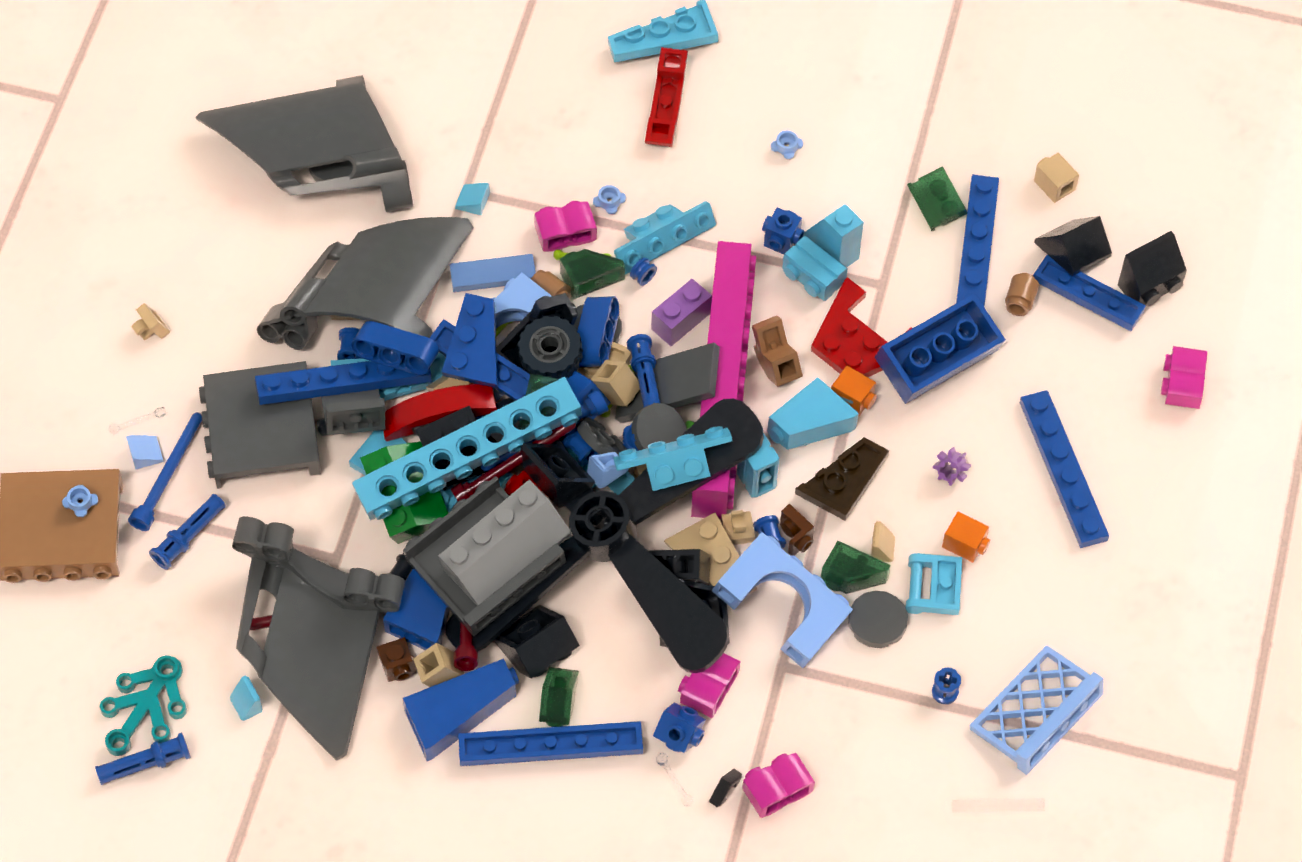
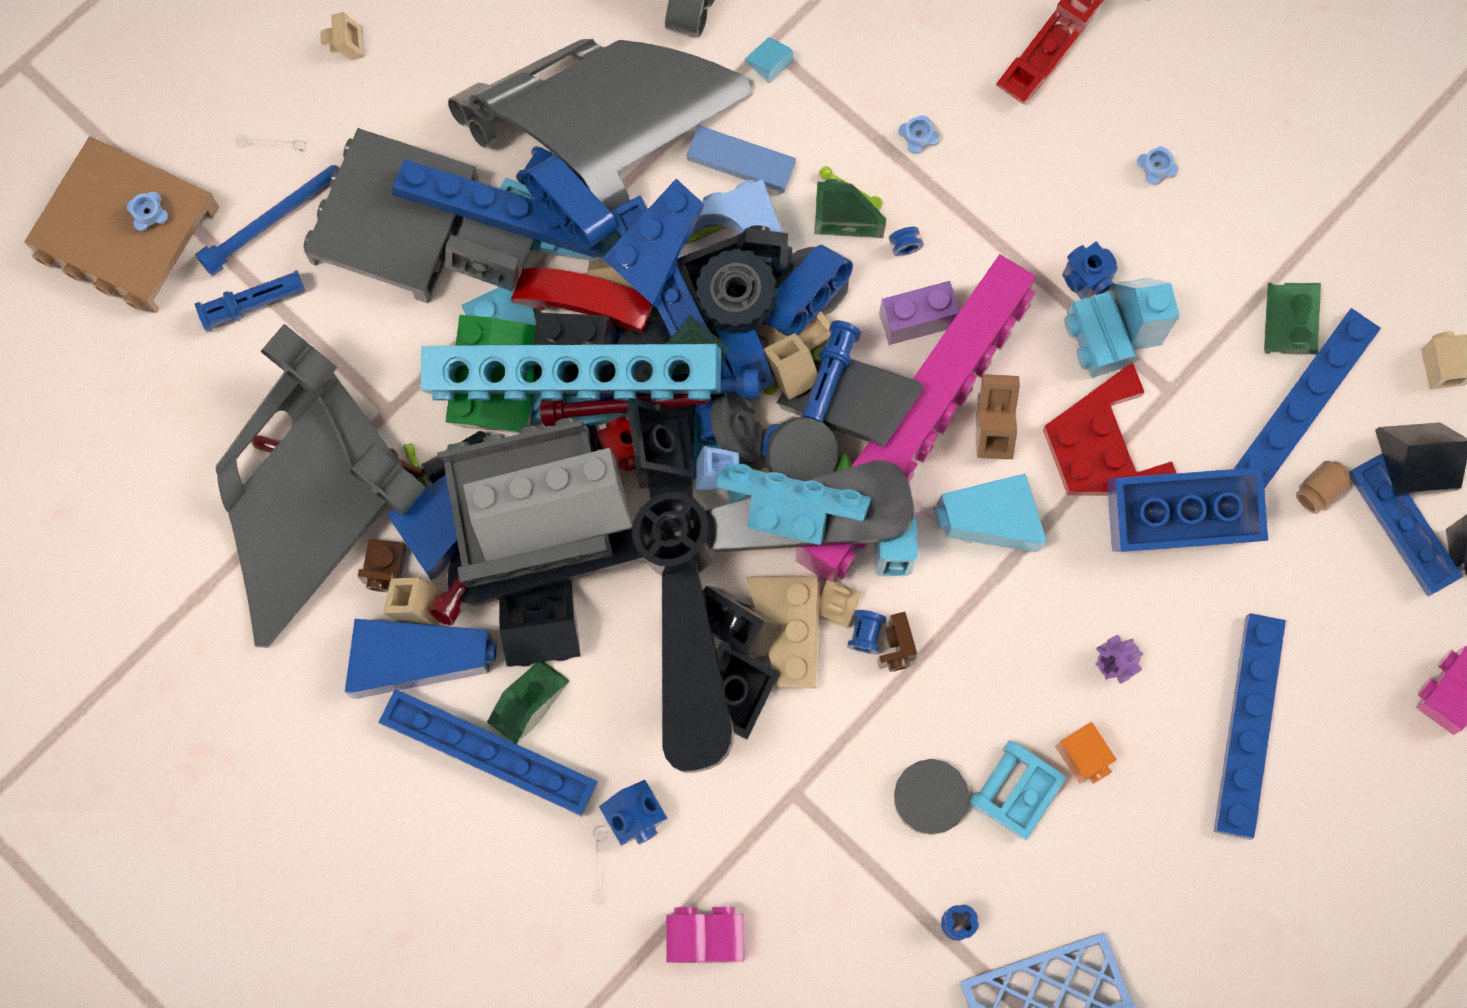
camera: 30 degrees right, 15 degrees up
(144, 450) = (257, 182): light blue slope -> none
(144, 701) = (100, 474): teal plant -> none
(158, 755) = (76, 542): blue pin -> none
(246, 699) = (203, 527): medium azure slope -> none
(551, 283) = (791, 210): medium nougat brick -> none
(565, 226) = (850, 142): dark pink brick -> none
(663, 232) = (953, 204): medium azure bracket -> none
(708, 688) = (691, 789): dark pink brick -> none
(730, 779) = (647, 907): black tile -> none
(767, 562) = (871, 759): light blue arch -> none
(846, 479) = (990, 609): dark brown wing -> none
(853, 570) = (932, 724): clear green slope -> none
(855, 389) = (1060, 508): orange brick -> none
(882, 543) = (988, 709): tan slope -> none

